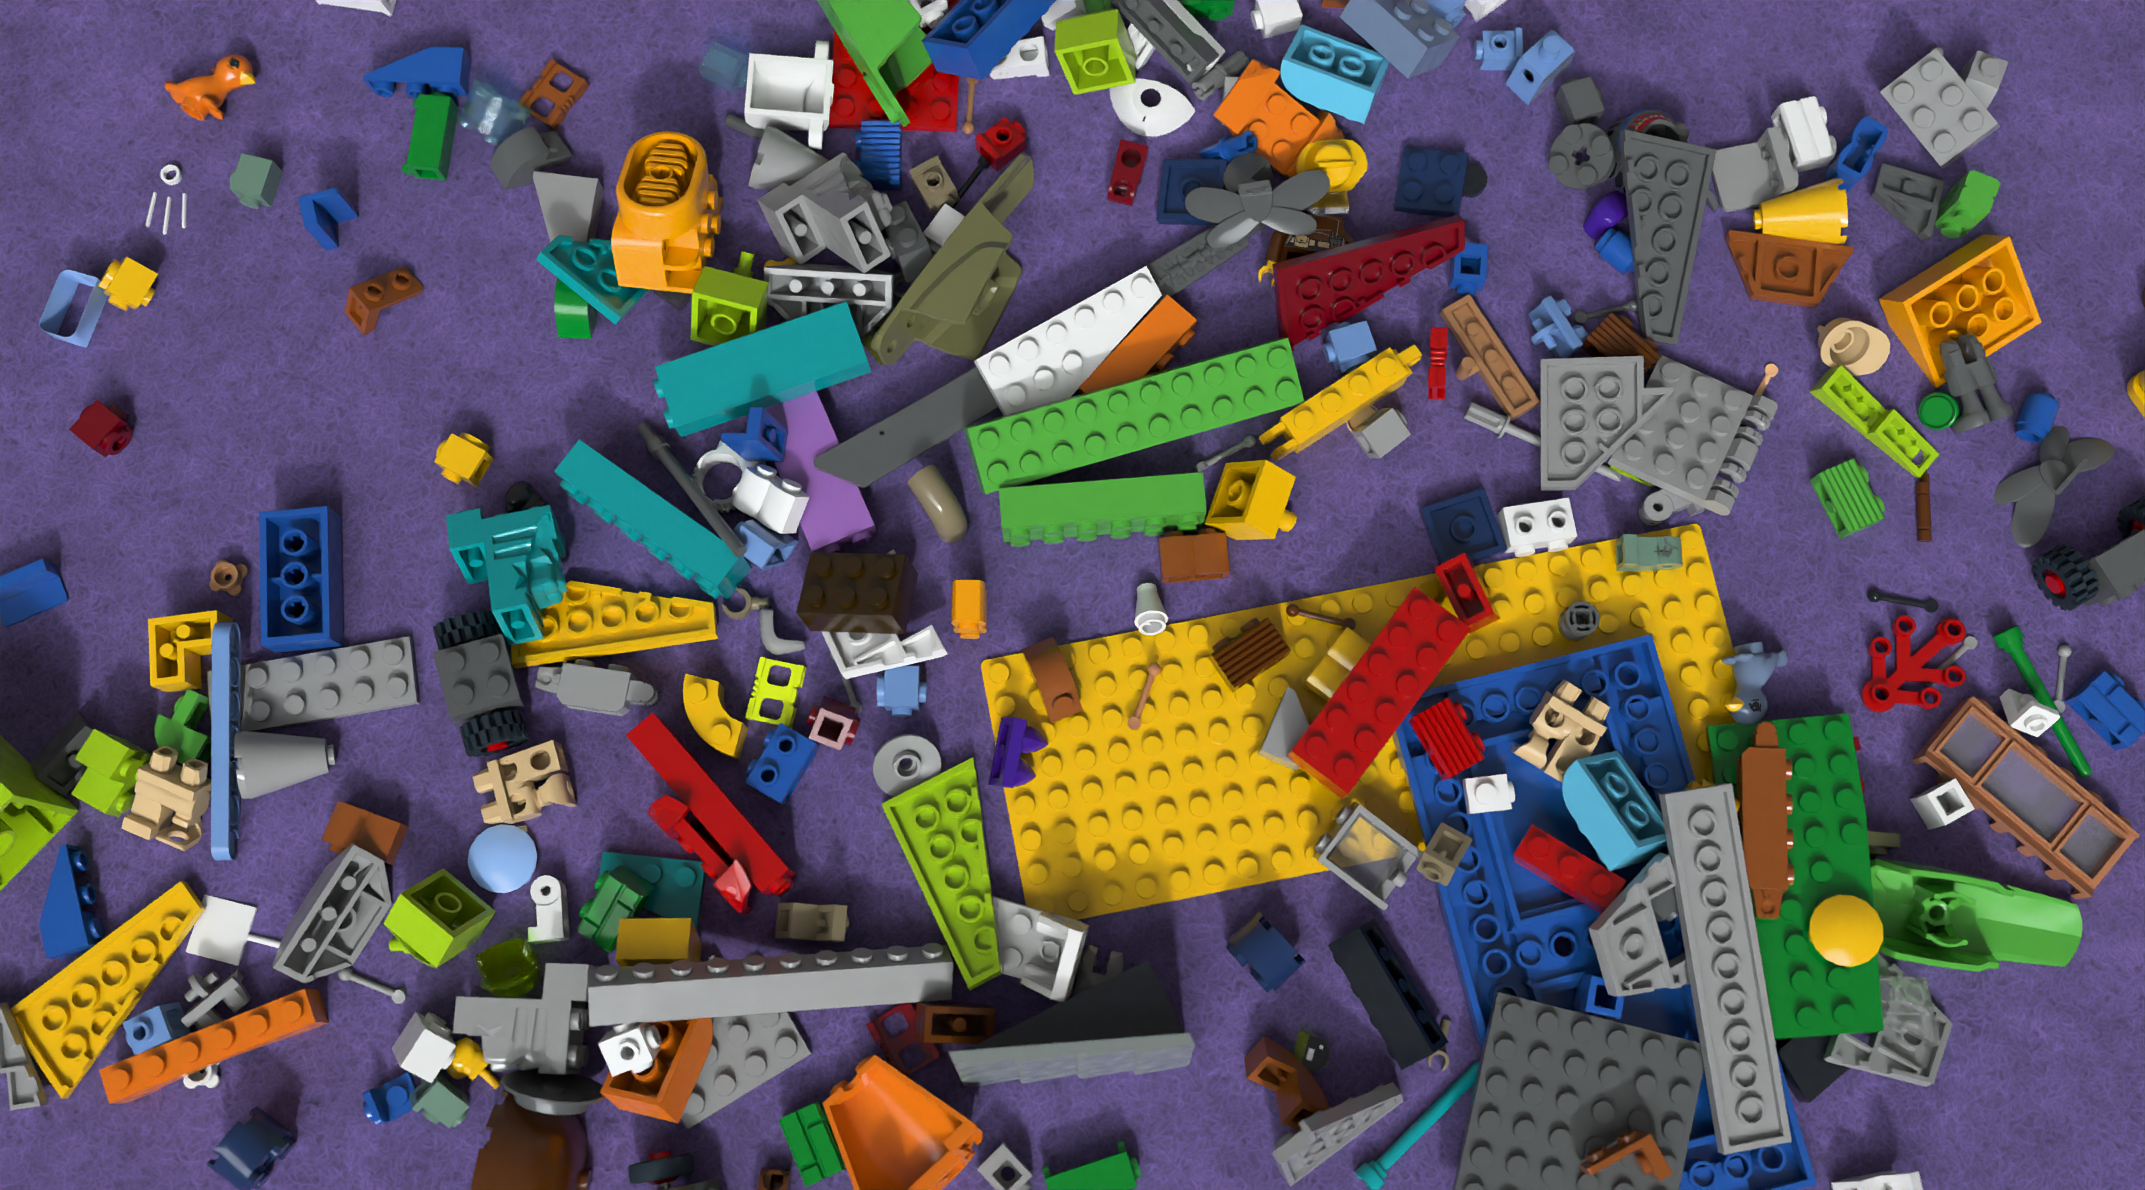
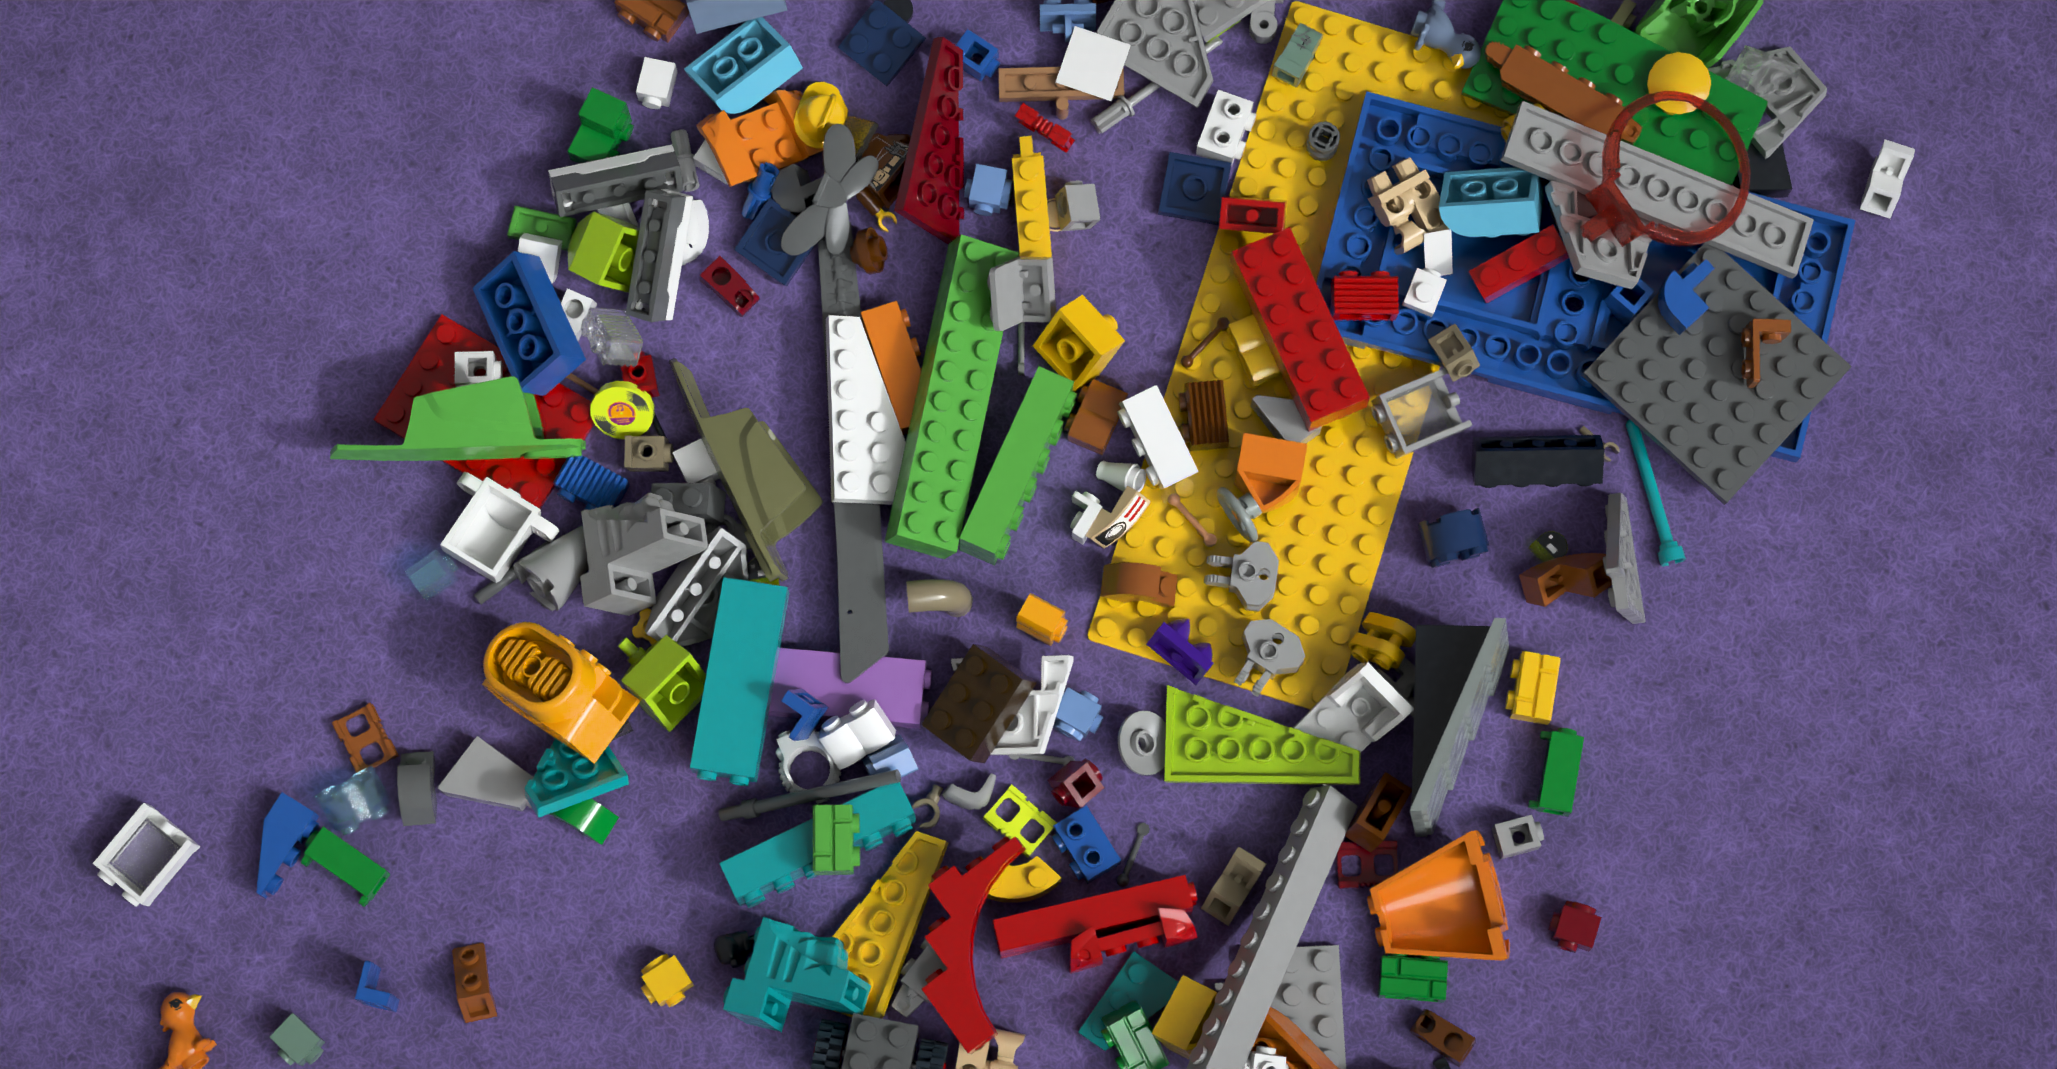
camera: 60 degrees left, 0 degrees up
(574, 713) = (963, 896): none -> red arch
(648, 526) = (834, 839): none -> bright green brick
(826, 809) = (1142, 830): none -> dark grey hinge
(960, 142) = (622, 410): none -> neon yellow tile
(1019, 94) = (612, 336): none -> clear brick
(1048, 833) = (1267, 655): none -> light grey hinge
(1087, 600) = (1083, 521): none -> white bracket
(1109, 630) = (1111, 526): none -> slope
(1111, 945) = (1382, 640): none -> yellow brick
(1116, 91) = (659, 255): none -> dark grey piece
(1116, 772) = (1245, 573): none -> light grey hinge
(1162, 1110) = (1534, 687): none -> yellow brick
(1200, 619) = (1157, 438): none -> white brick
(1222, 743) = (1267, 476): none -> orange piece
(1230, 273) = (869, 251): none -> reddish brown plate
(1264, 418) = (1022, 292): none -> light grey bracket
(1524, 372) = (1093, 63): none -> white sticker
(1535, 786) = (1438, 251): none -> white sticker
(1623, 1050) = (1677, 299): none -> blue brick
(1674, 940) = (1616, 212): none -> clear red brick

